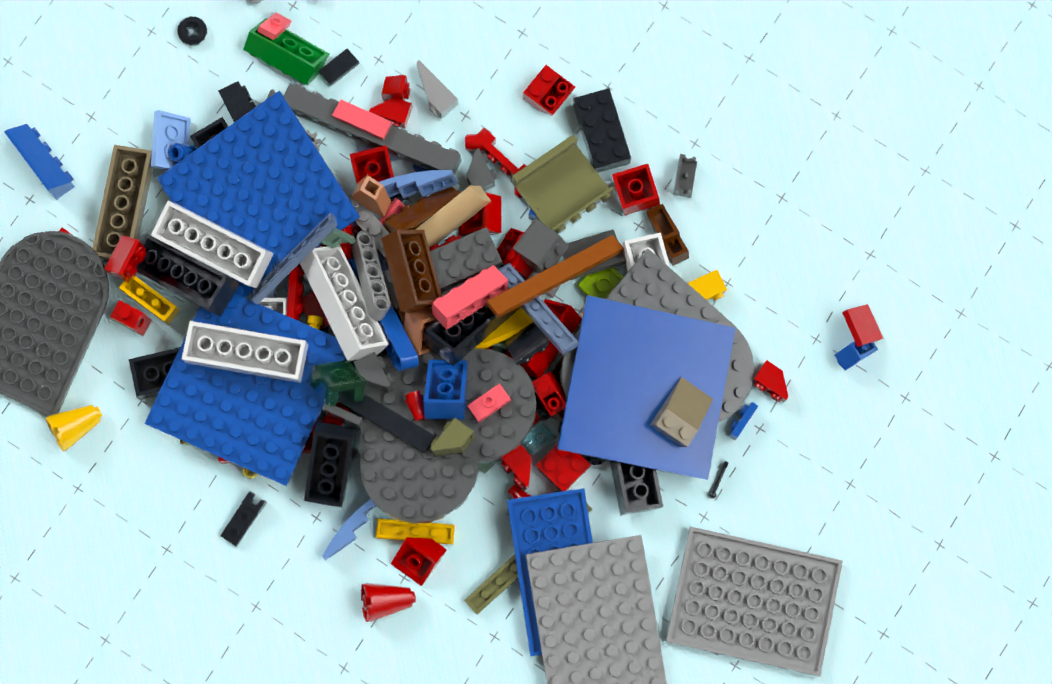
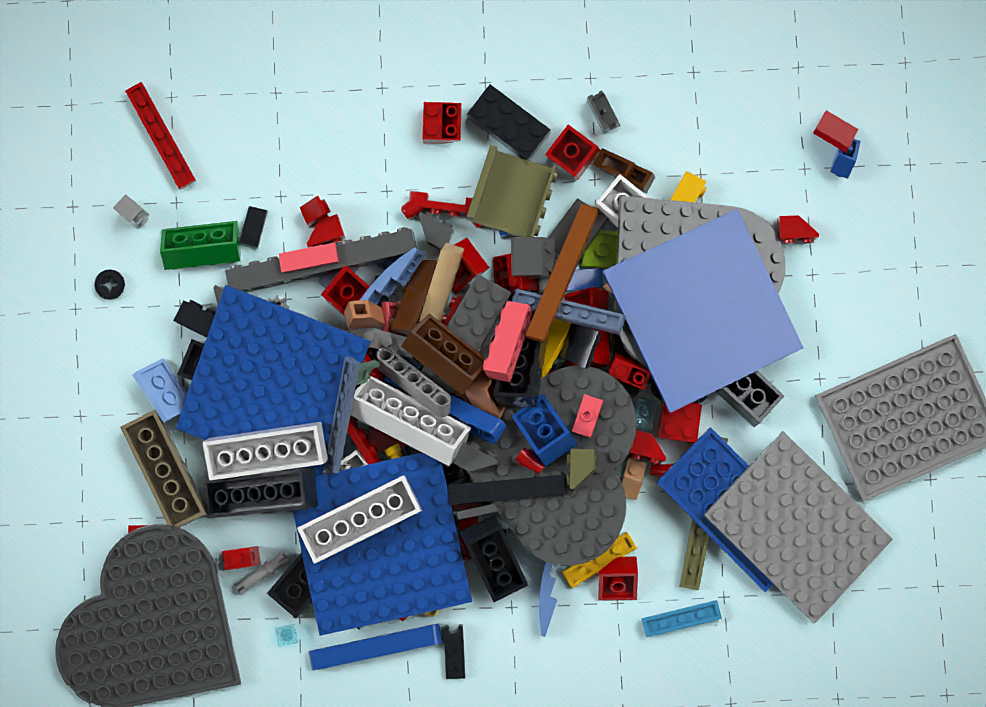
camera: 25 degrees left, 5 degrees up
(40, 160) = (68, 483): blue slope -> none
(73, 424) = (260, 678): yellow cone -> none
(120, 406) = (286, 635): none -> clear light blue plate
(126, 258) = (203, 514): red slope -> none
(138, 342) = (261, 573): none -> light grey pin
(150, 299) = (244, 531): yellow brick -> none
(180, 151) = (178, 393): blue cone -> none
(183, 467) = (375, 646): none -> blue beam
(274, 26) = (175, 231): coral plate -> none
(336, 378) = (451, 486): clear green panel -> none
(384, 600) = (617, 633): red cone -> none
(438, 95) = (353, 191): light grey slope -> none
(446, 627) = (681, 618): none -> dark azure plate
(491, 485) = (633, 478): none -> light nougat slope
(569, 295) = (585, 279): none -> blue tile
(682, 413) = (747, 310): dark tan slope -> none
(712, 494) = (814, 356): black hinge -> none
(737, 427) = (795, 286): blue plate -> none

